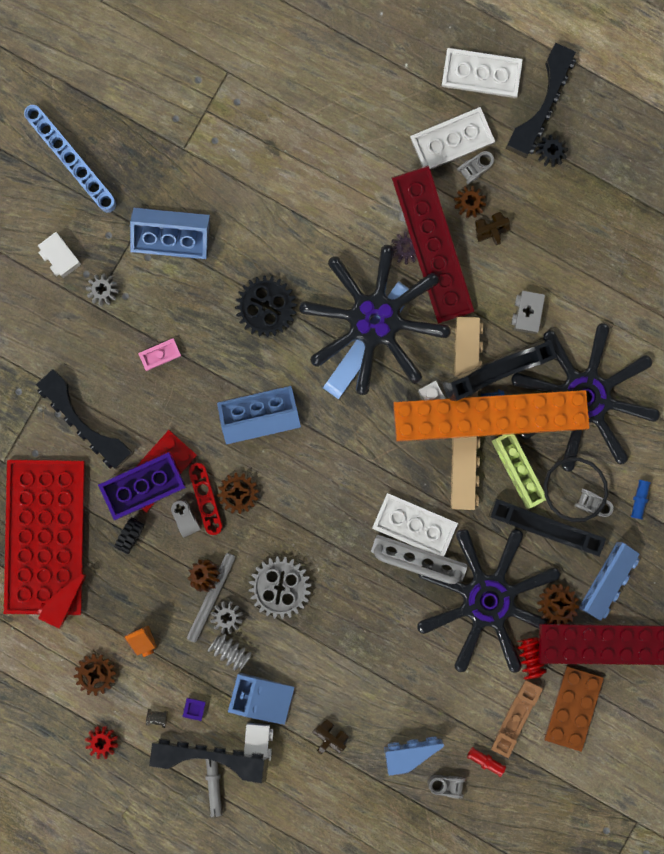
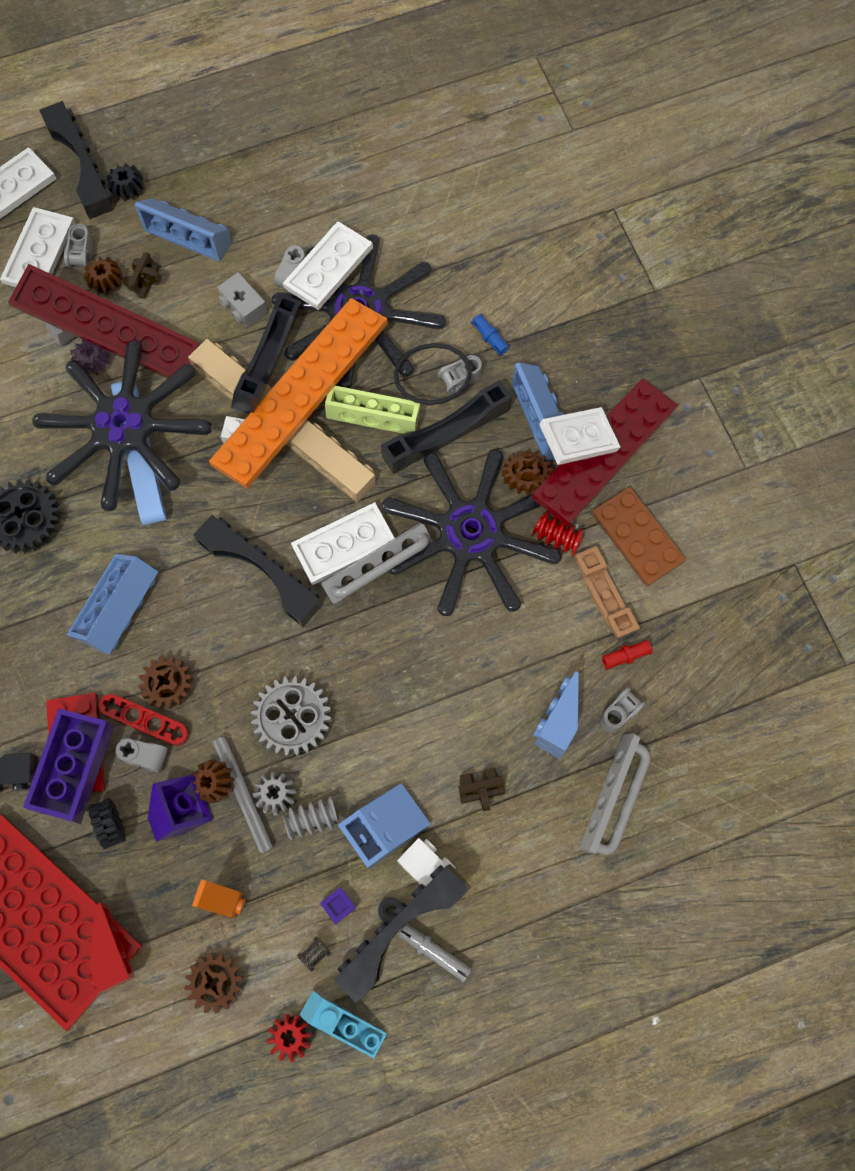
camera: 45 degrees left, 15 degrees down
(132, 765) = (342, 1024): none -> medium azure slope
(171, 567) = (176, 808): none -> dark purple slope
(212, 736) = (390, 901): none -> black plate
(353, 447) = (223, 542): none -> black arch
(391, 817) = (596, 827): none -> light grey piece
(549, 225) = (184, 228): none -> medium blue slope
(575, 326) = (292, 258): none -> light grey piece
(598, 352) = (328, 265): none -> white plate
(604, 625) = (579, 435): none -> white plate

